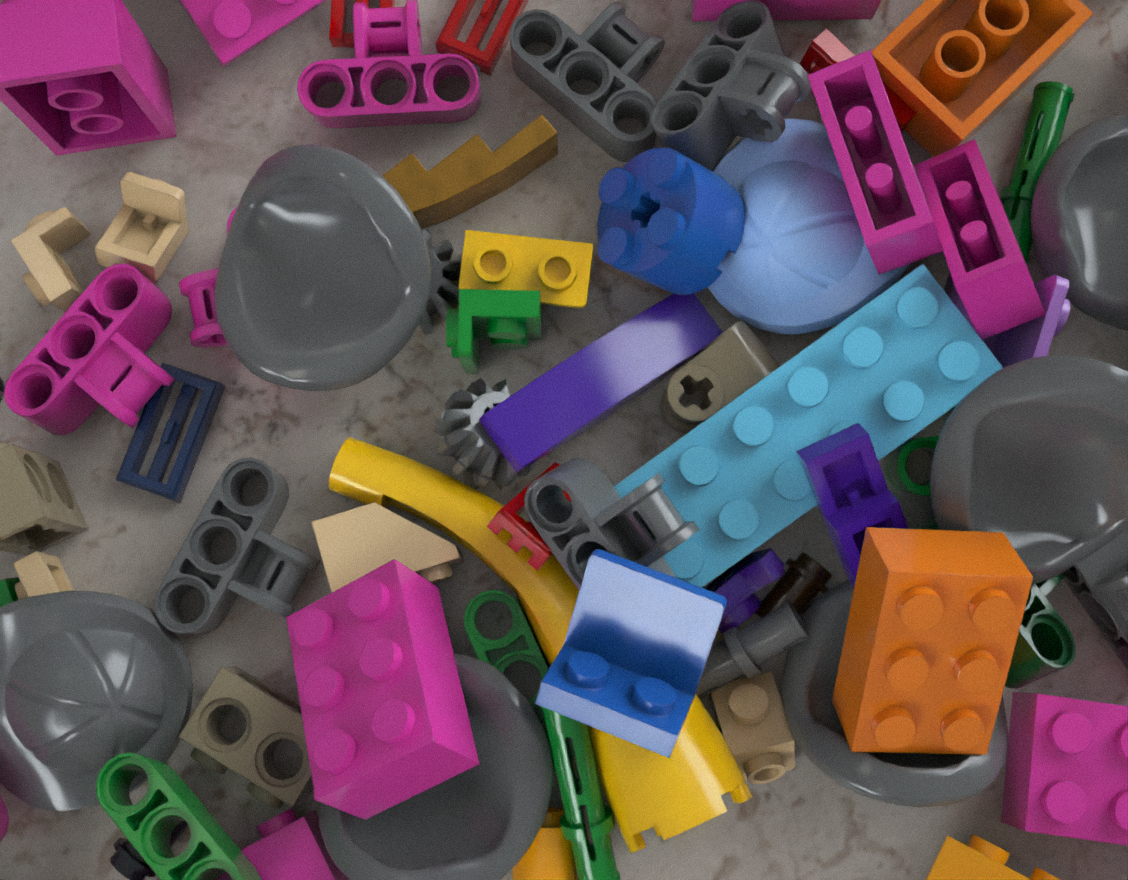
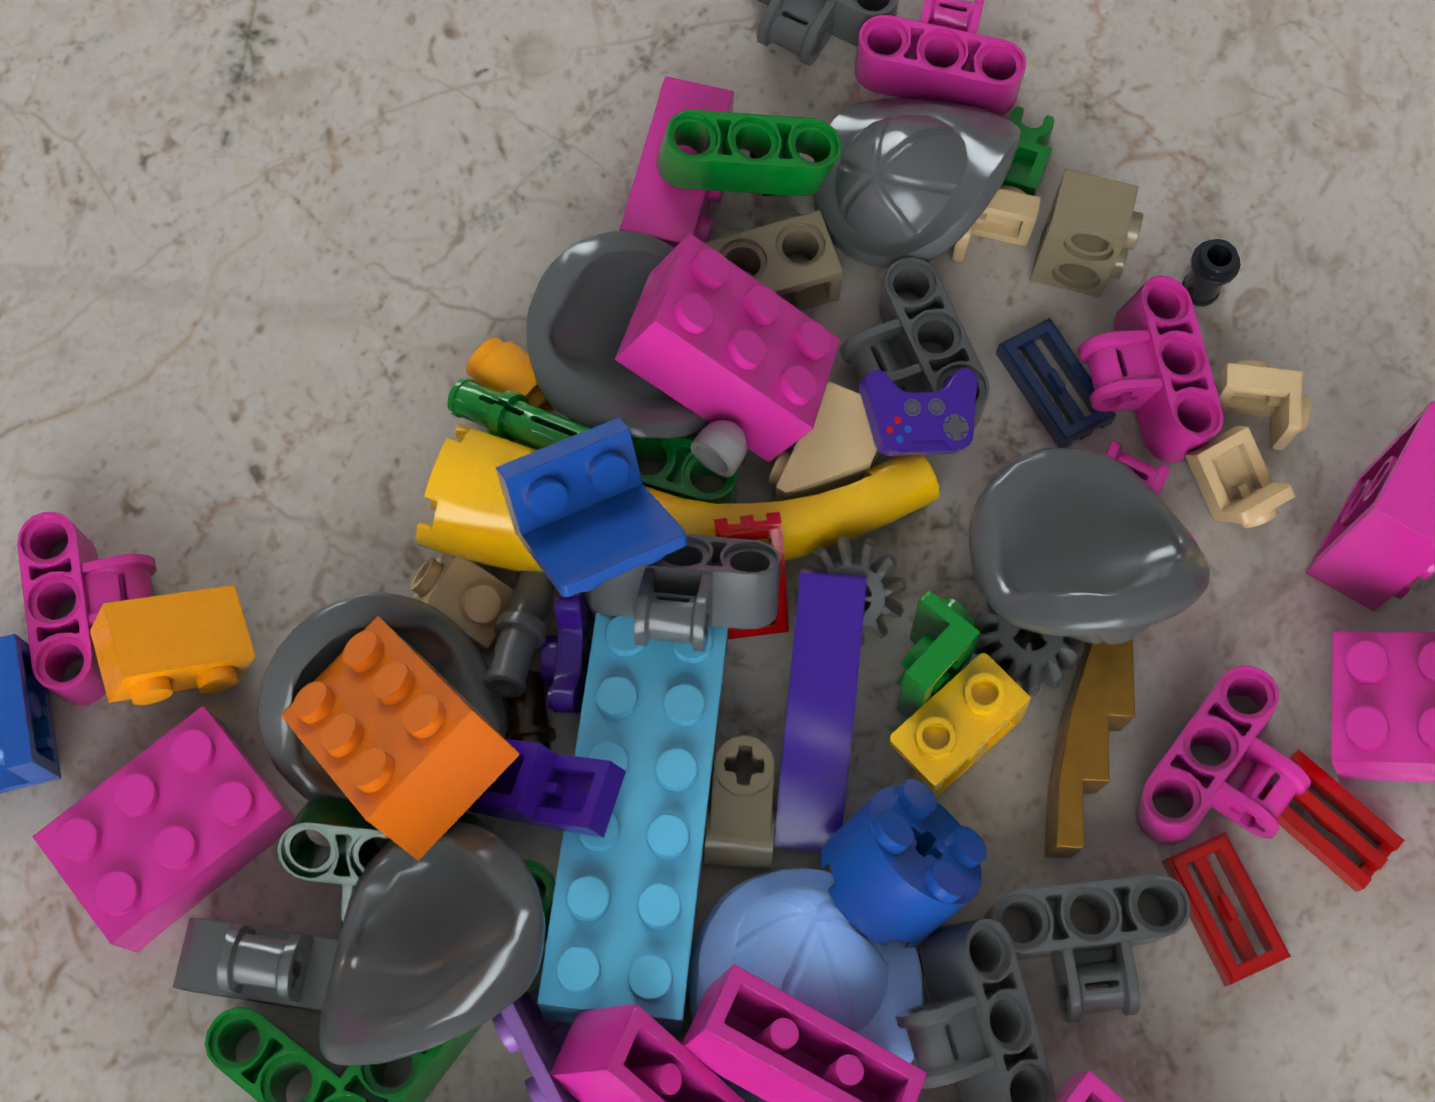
camera: 130 degrees right, 10 degrees down
(310, 485) = (921, 421): none -> dark purple piece
(467, 622) = (720, 447): none -> light grey hinge

